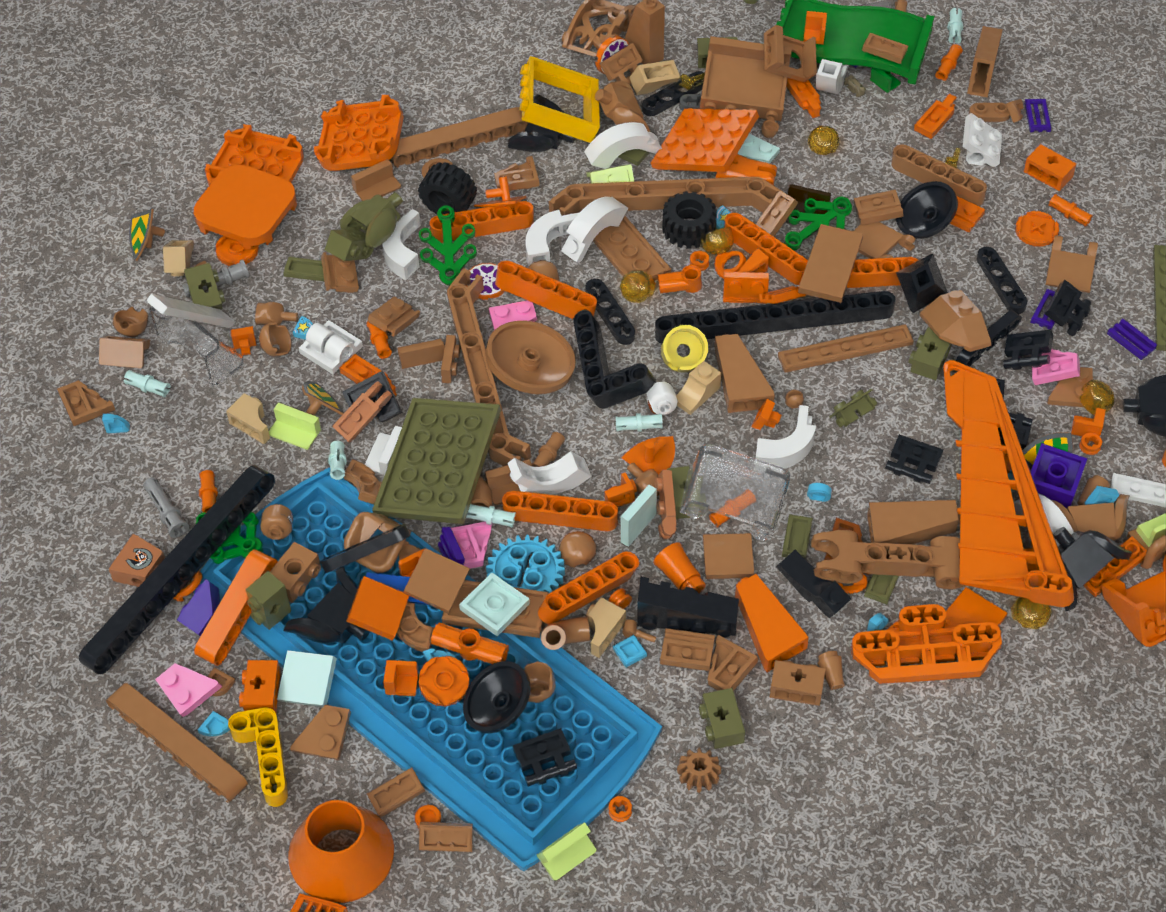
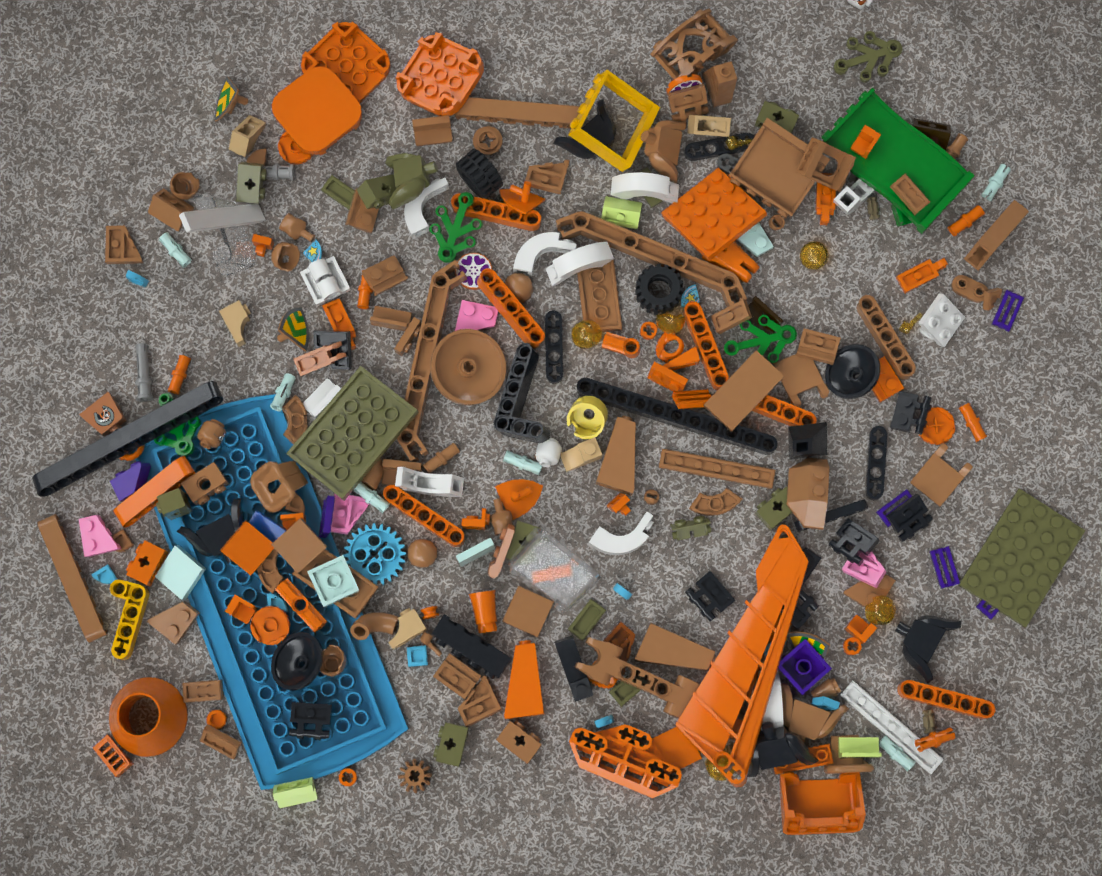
camera: 25 degrees right, 25 degrees up
(294, 426) = (265, 345): yellowish green panel -> none
(365, 548) = (260, 493): black beam -> none
(599, 579) = (399, 596): orange beam -> none
(833, 671) = (550, 741): medium nougat cone -> none
(866, 378) = (715, 504): none -> medium nougat tile
(999, 227) = (905, 411): none -> black plate
(1049, 167) = (982, 382): orange brick -> none

